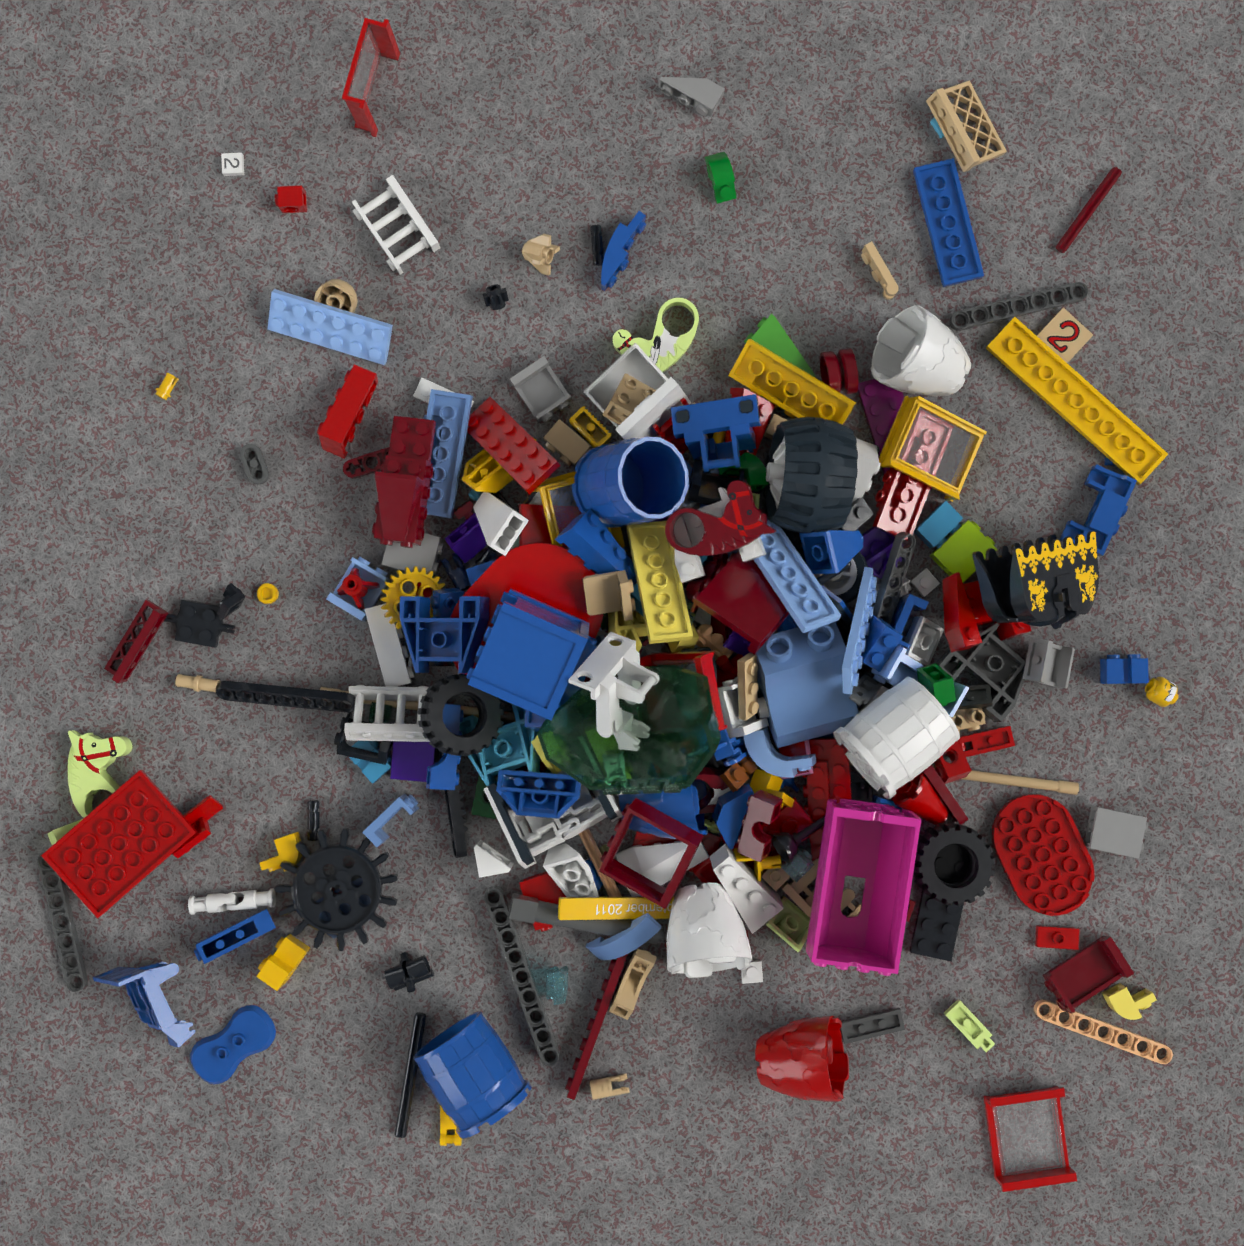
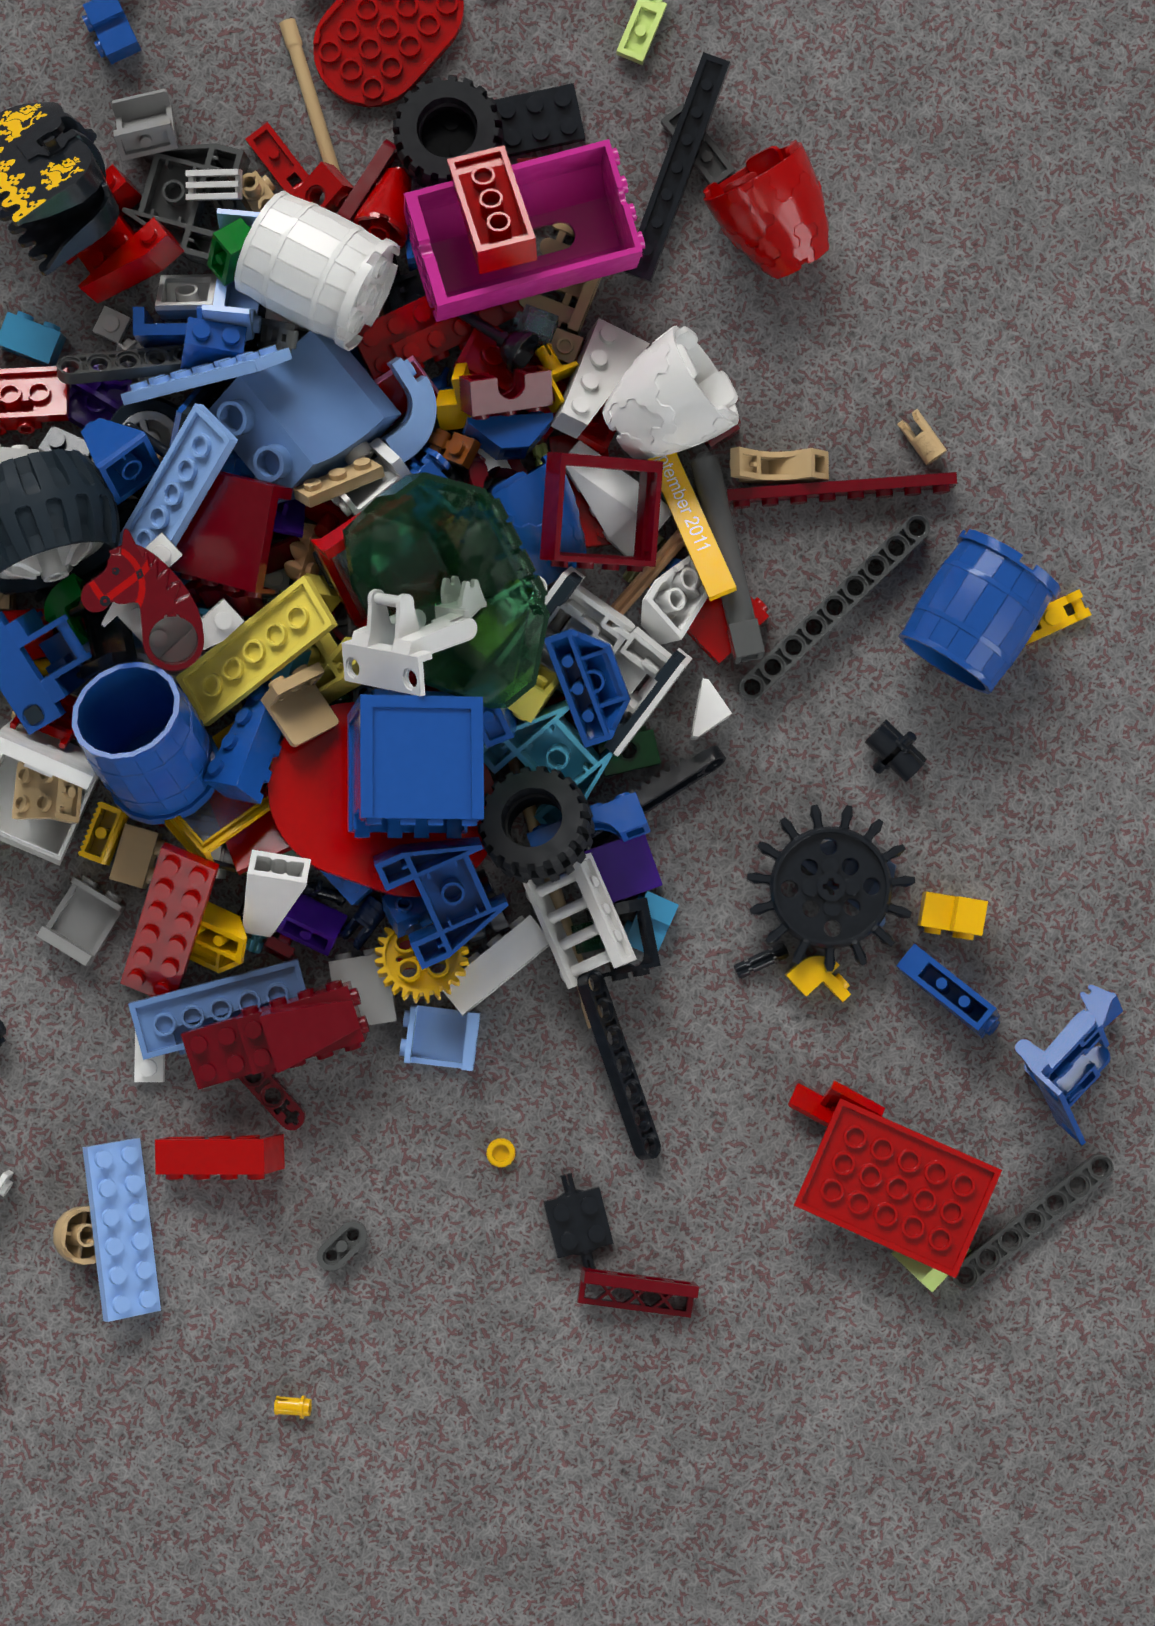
camera: 110 degrees left, 0 degrees up
(88, 765) = (819, 1280): yellowish green animal -> none
(197, 683) = (654, 1188): tan pin -> none
(220, 1054) = (1108, 943): blue plate -> none
(222, 902) = (914, 1025): white piece -> none
(231, 602) = (526, 1192): black bracket -> none
(356, 587) = (445, 1034): red brick -> none
(375, 832) = (735, 876): medium blue panel -> none
(410, 1076) = (1022, 692): black axle -> none
(557, 984) = (824, 559): clear light blue hips -> none
(640, 932) = (729, 495): medium blue slope -> none
(753, 973) = (701, 323): white plate -> none
(790, 924) = (618, 300): yellowish green slope -> none
(870, 1014) = (679, 162): none -> black plate
(882, 874) = (492, 210): none -> red slope
(957, 551) = (49, 297): lime panel -> none
(993, 677) = (192, 184): none -> white tile

